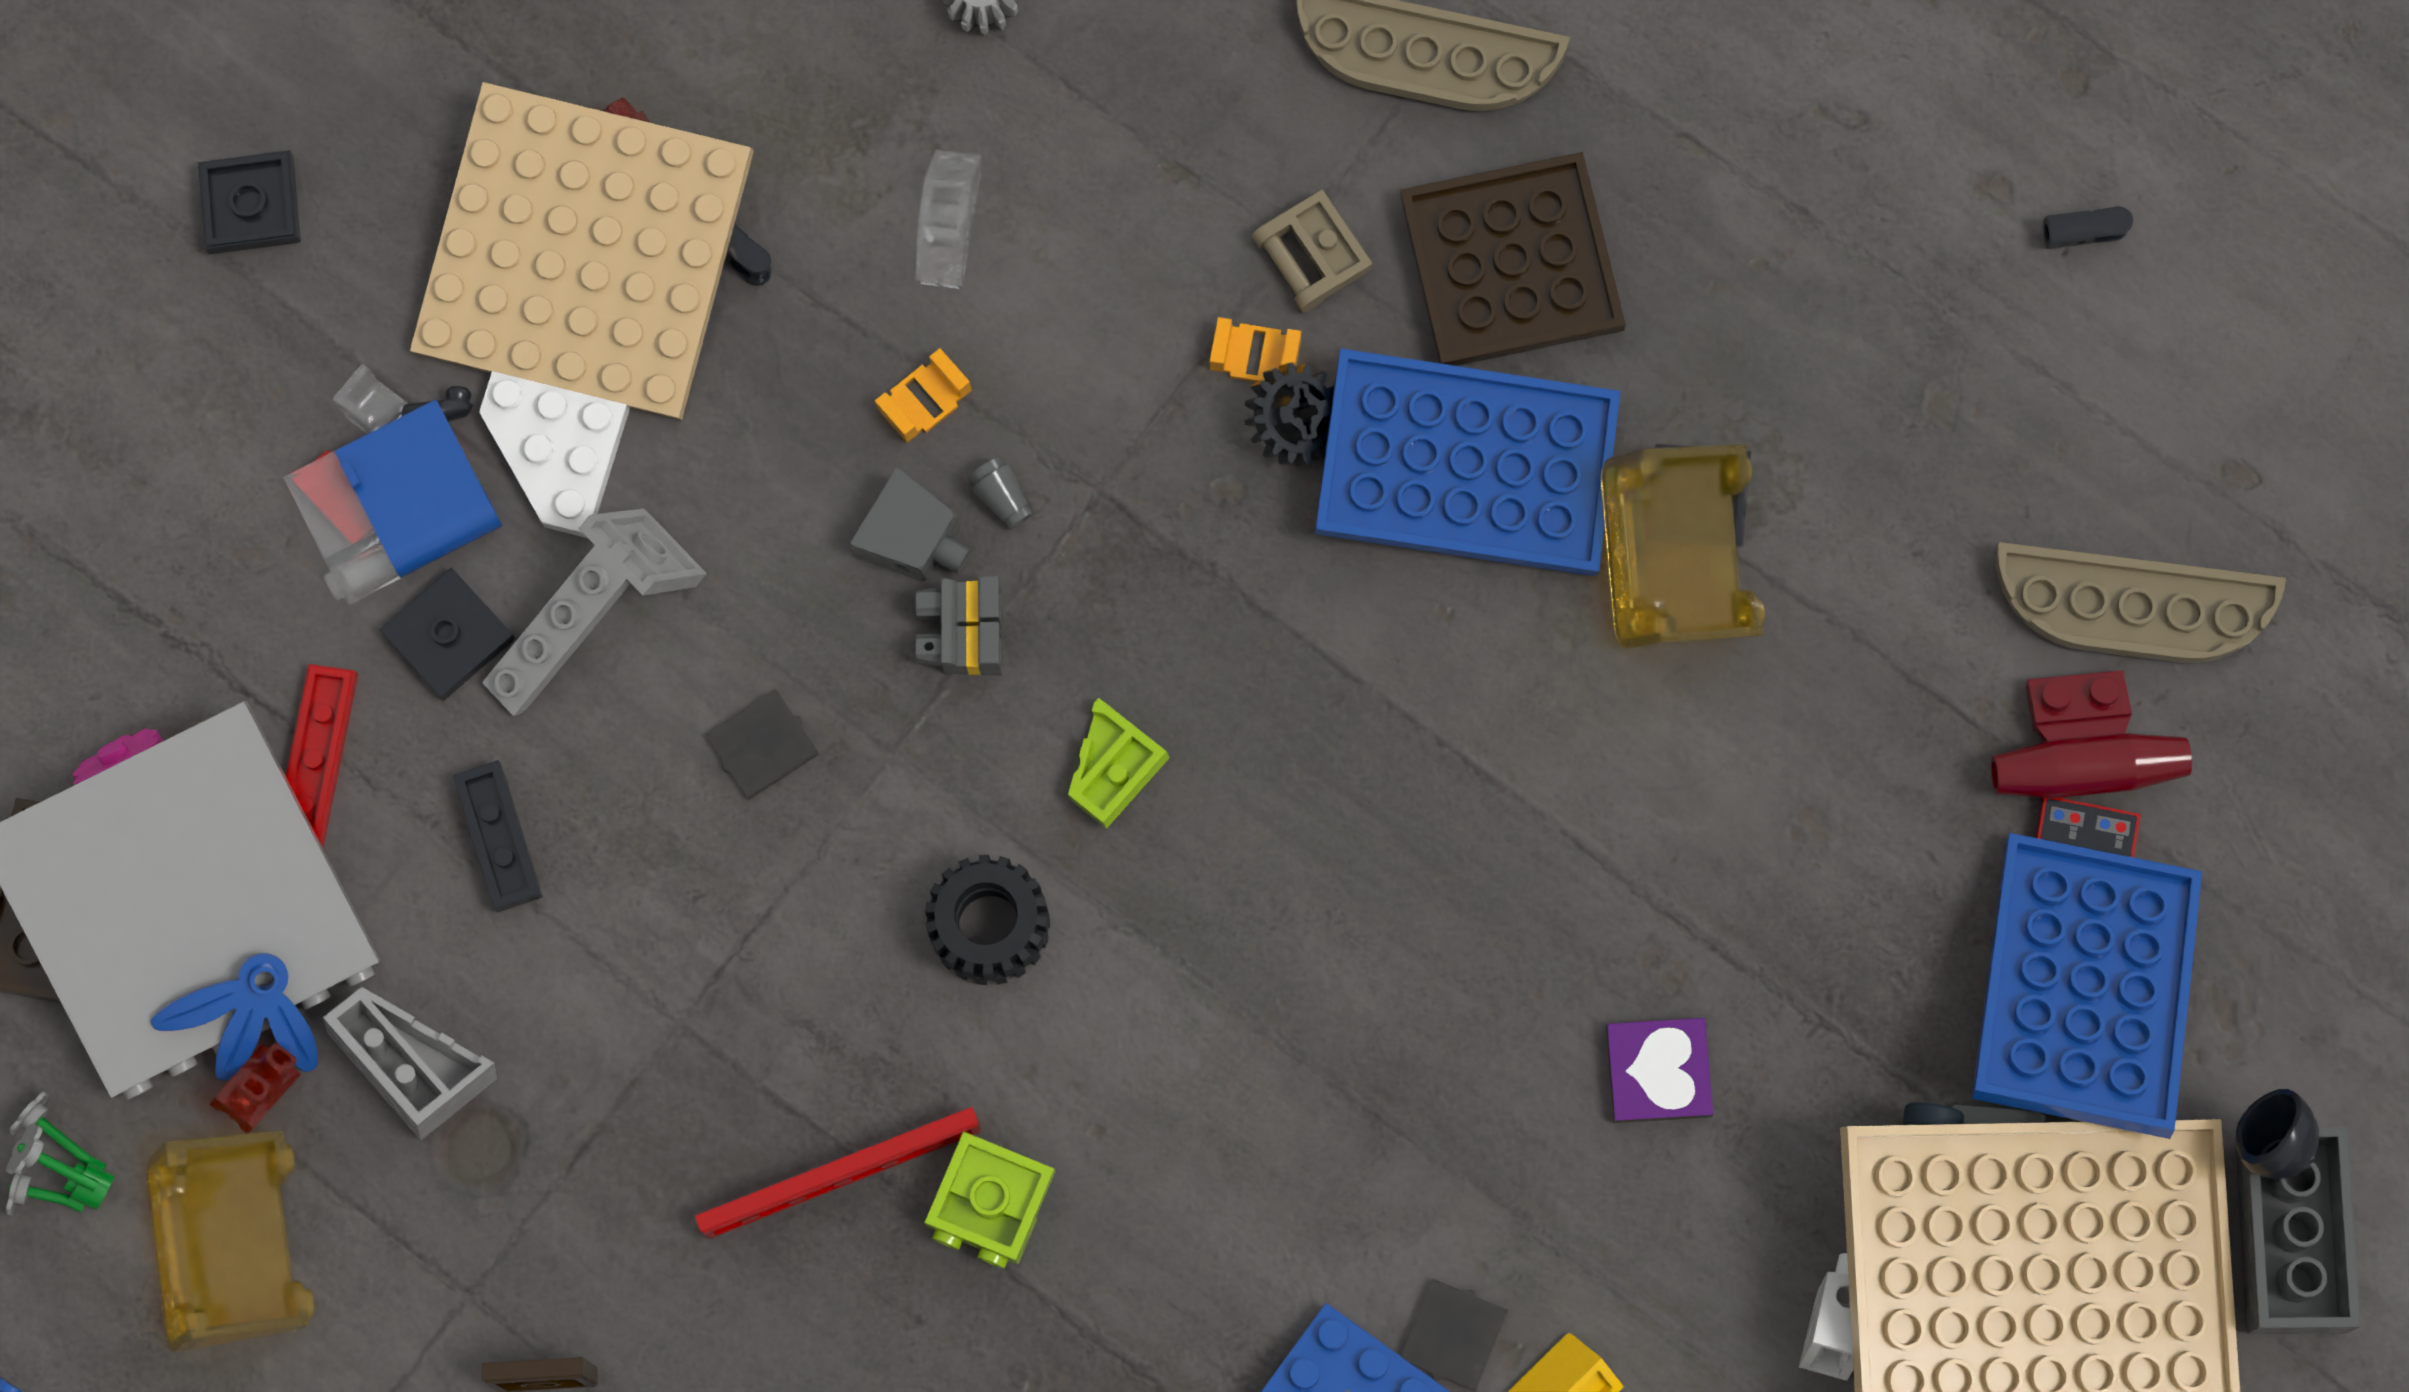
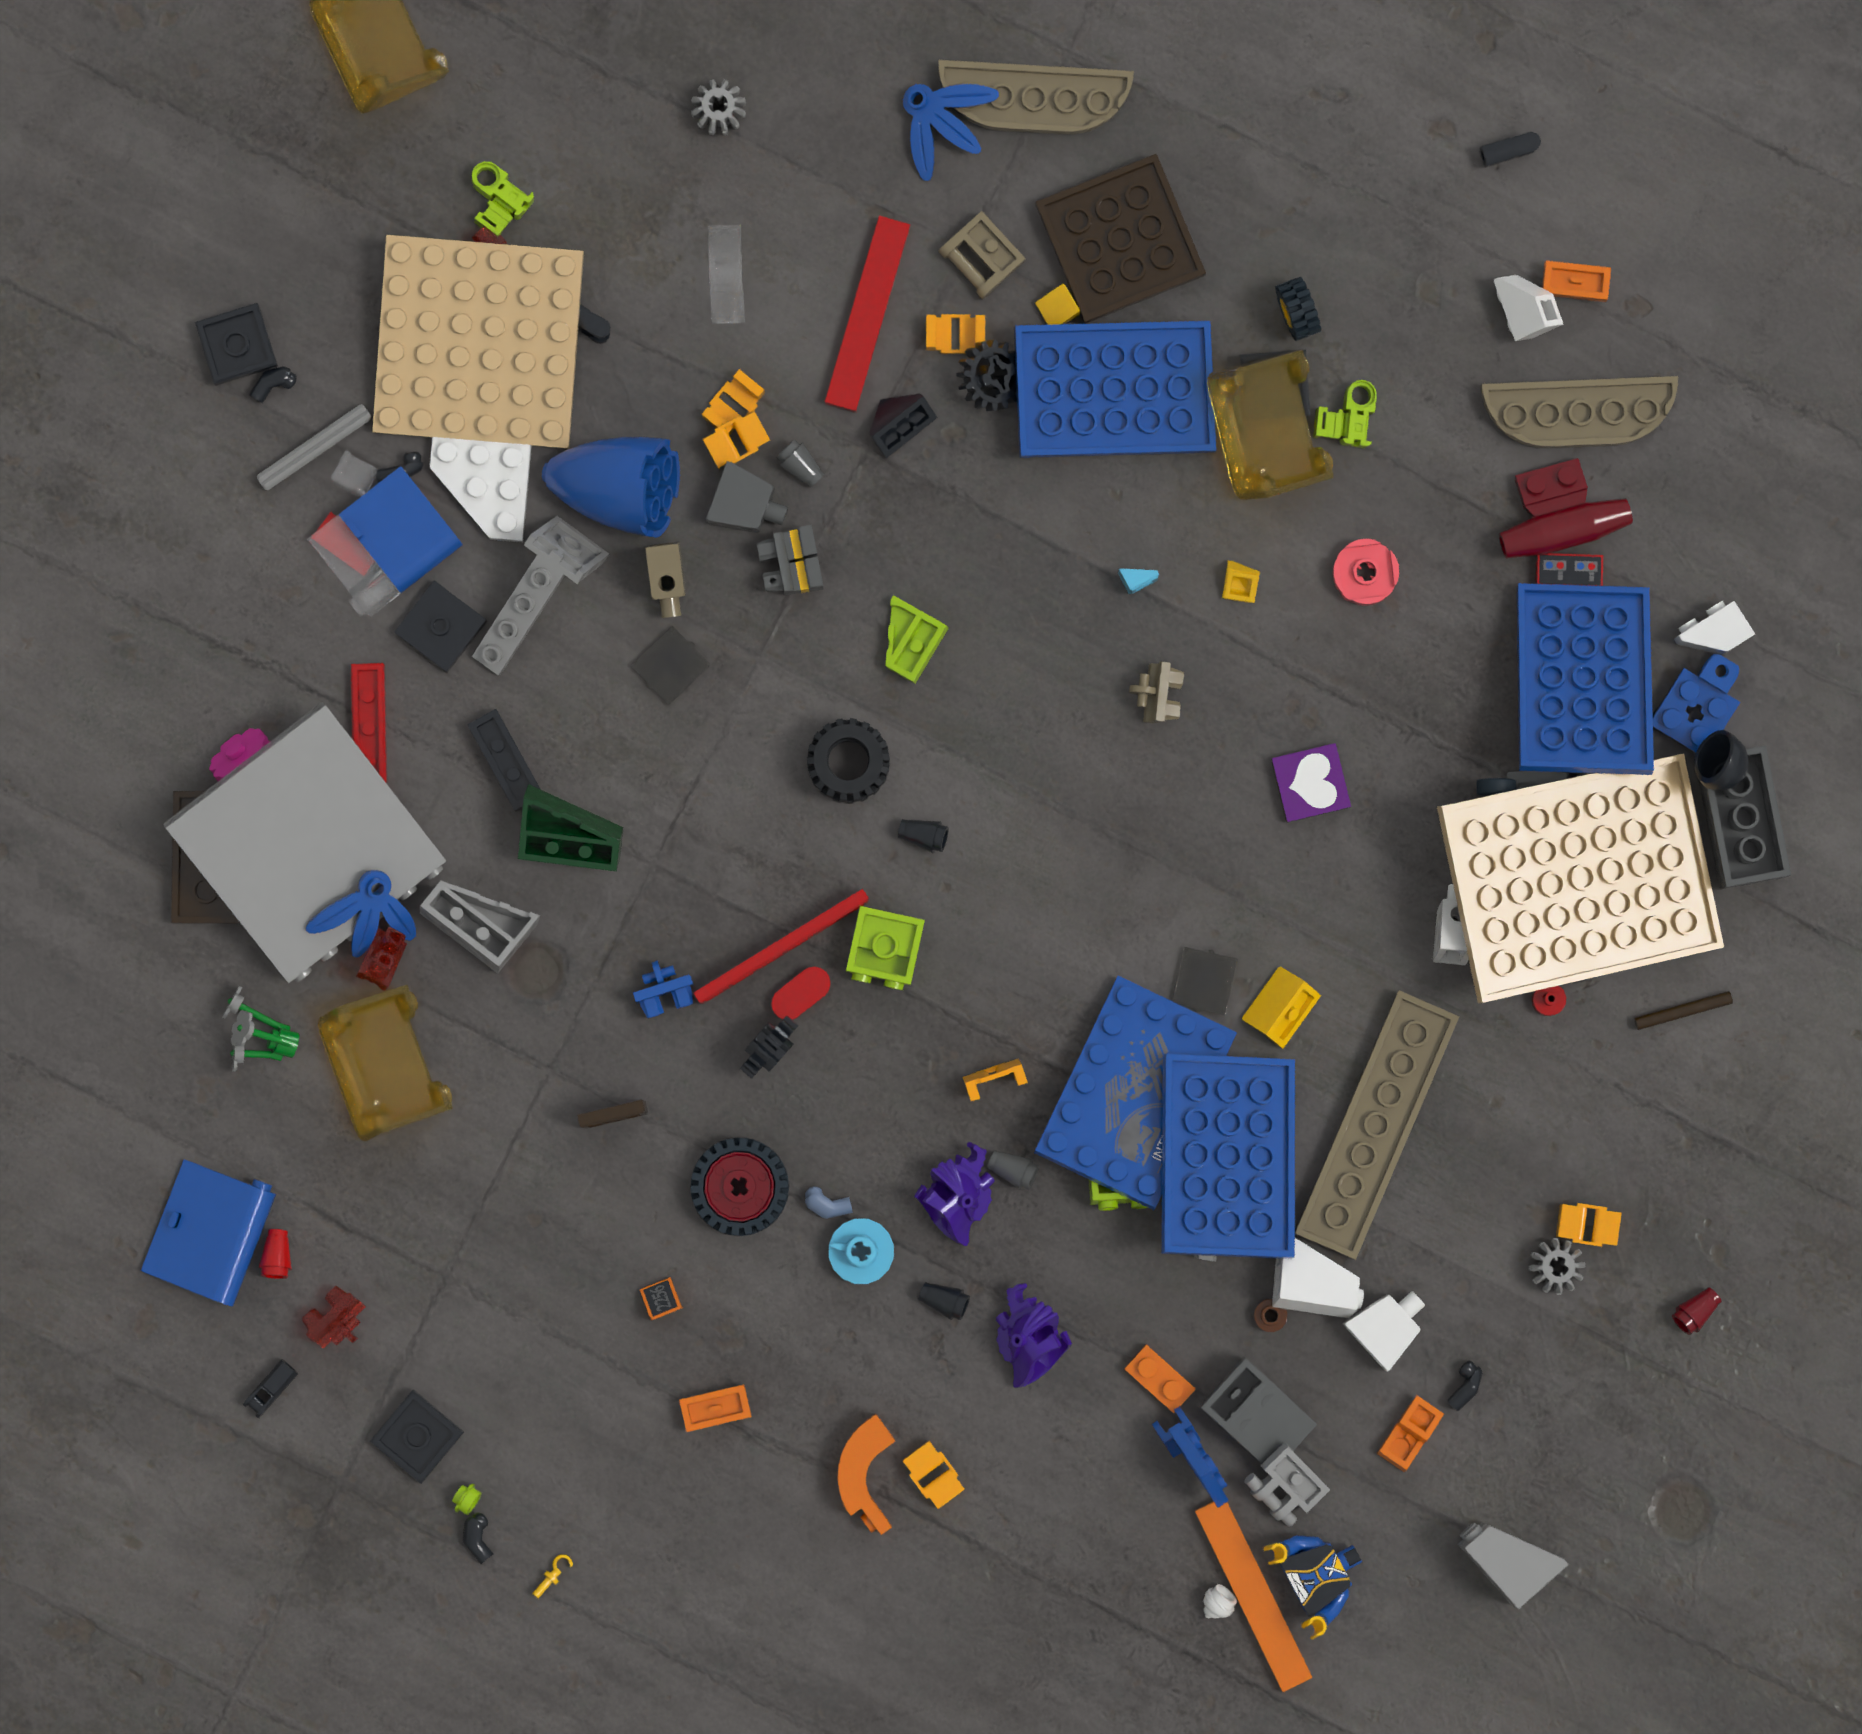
camera: 20 degrees left, 10 degrees up
(285, 257) = (271, 379): none -> black arm
(325, 359) = (314, 447): none -> light grey axle
(558, 953) = (566, 834): none -> dark green wedge
(633, 1211) = (679, 988): none -> blue hips
(659, 68) = (506, 201): none -> lime piece
(739, 472) = (618, 482): none -> blue cylinder
(775, 593) = (663, 561): none -> dark tan torso
(789, 1315) = (769, 1047): none -> black gear
(855, 1248) = (801, 993): none -> red tile
(937, 435) = (722, 447): none -> light orange piece
(1080, 1046) = (924, 834): none -> black cone
(1136, 306) = (867, 314): none -> red tile
(1154, 459) = (899, 421): none -> black slope
(1278, 47) = (932, 112): none -> blue plant
(1408, 336) = (1058, 306): none -> yellow slope
(1449, 898) = (1153, 692): none -> dark tan hips
(1455, 733) = (1137, 578): none -> medium azure slope
(1603, 765) = (1240, 582): none -> yellow slope
(1749, 392) = (1298, 308): none -> black wheel
(1798, 569) = (1351, 424): none -> lime piece
(1807, 760) = (1377, 557): none -> coral plate
(2080, 447) = (1527, 307): none -> white slope
(2156, 423) = (1577, 281): none -> orange plate
(2266, 1035) = (1700, 689): none -> blue plate
(2296, 953) = (1718, 632): none -> white slope

